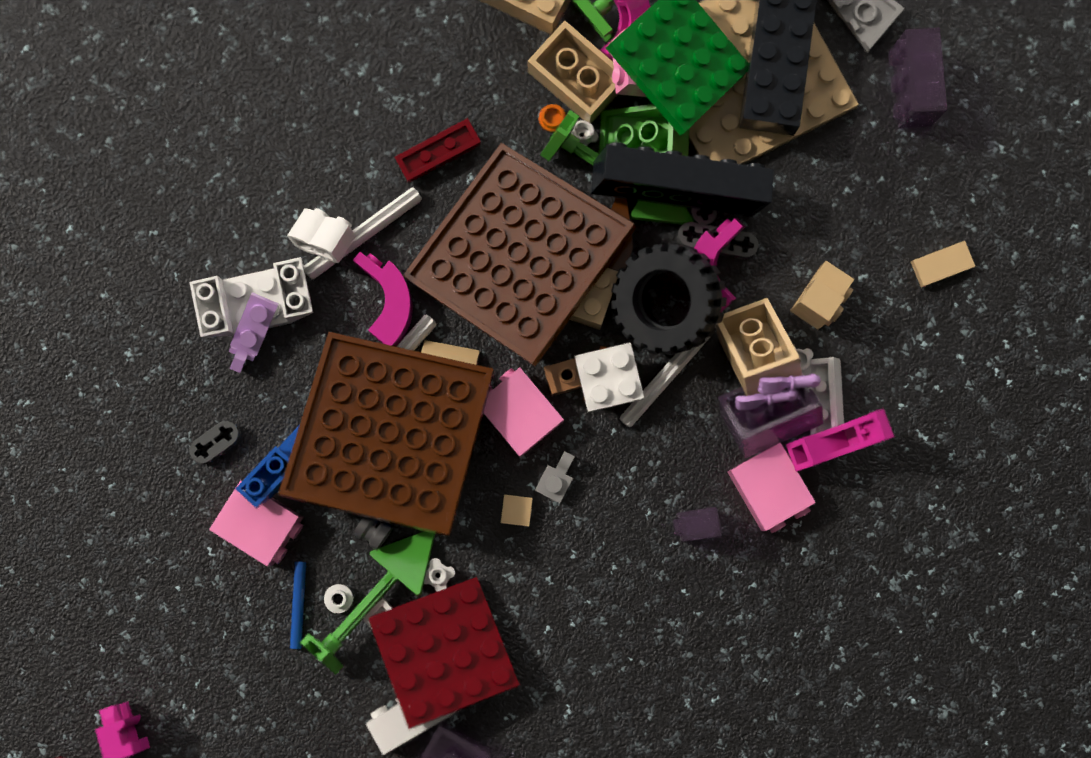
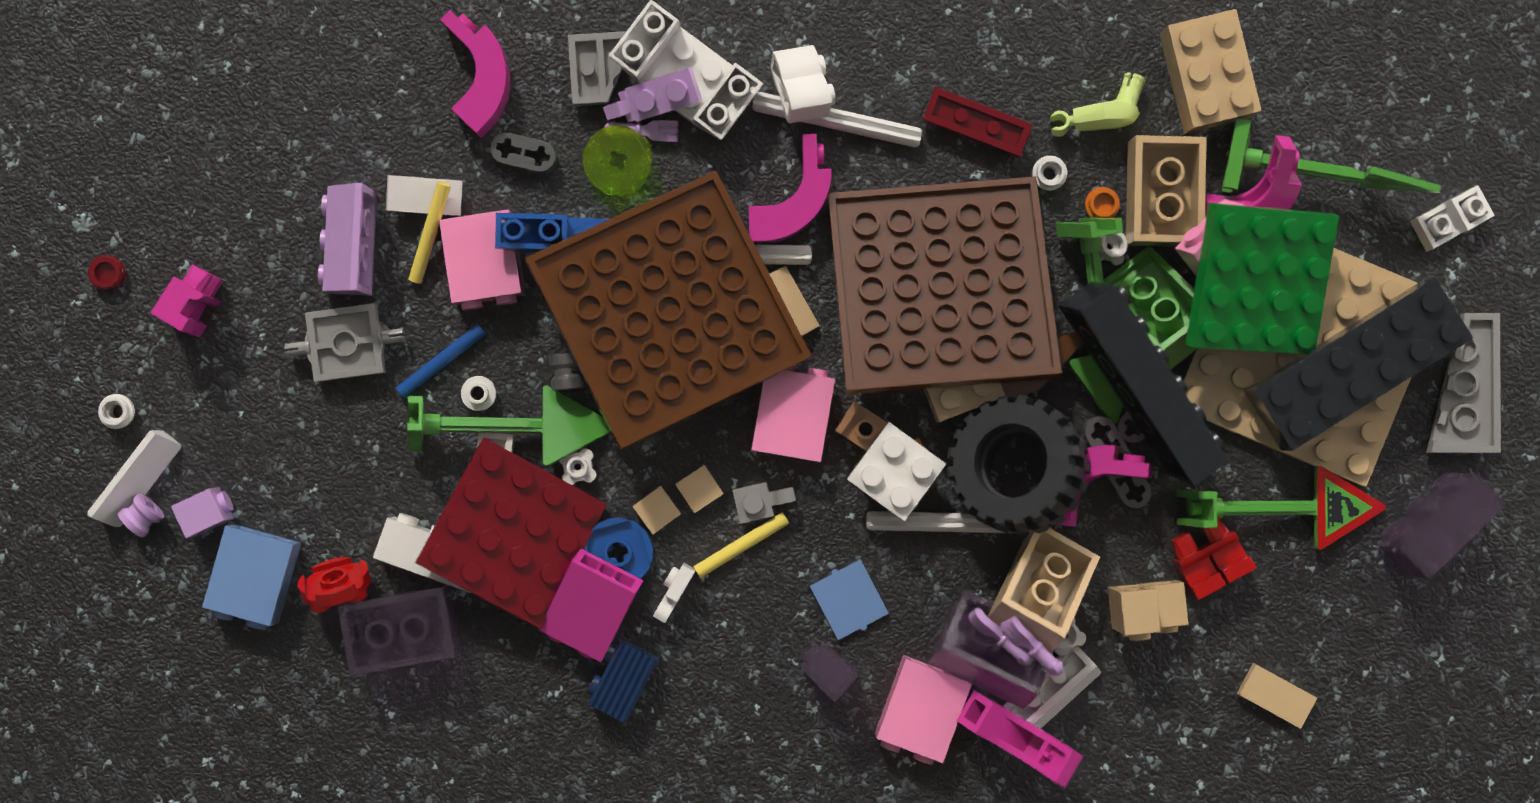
camera: 45 degrees right, 5 degrees up
(160, 433) = (491, 86): none -> dark pink arch
(171, 598) = (348, 239): none -> lavender slope
(186, 526) = (416, 194): none -> white slope
(200, 355) = (592, 69): none -> light grey wing
(211, 542) = (429, 232): none -> light yellow bar
(234, 656) = (345, 342): none -> light grey plate
(256, 396) = (622, 140): none -> clear neon green plate
(272, 349) = (656, 130): none -> lavender piece
(499, 70) = (1105, 114): none -> yellowish green arm
(504, 125) = (1060, 172): none -> white plate
(507, 548) = (656, 510): none -> tan tile
(528, 590) = (629, 535): none -> blue plate
(531, 641) = (590, 605): none -> dark pink brick
(563, 574) = (676, 582): none -> white plate
(573, 514) = (741, 544): none -> light yellow bar
(595, 661) = (622, 680): none -> dark blue brick
(664, 476) = (849, 599): none -> medium blue piece
(828, 233) = (1211, 563): none -> red hips
(856, 132) = (1335, 507): none -> bright green piece

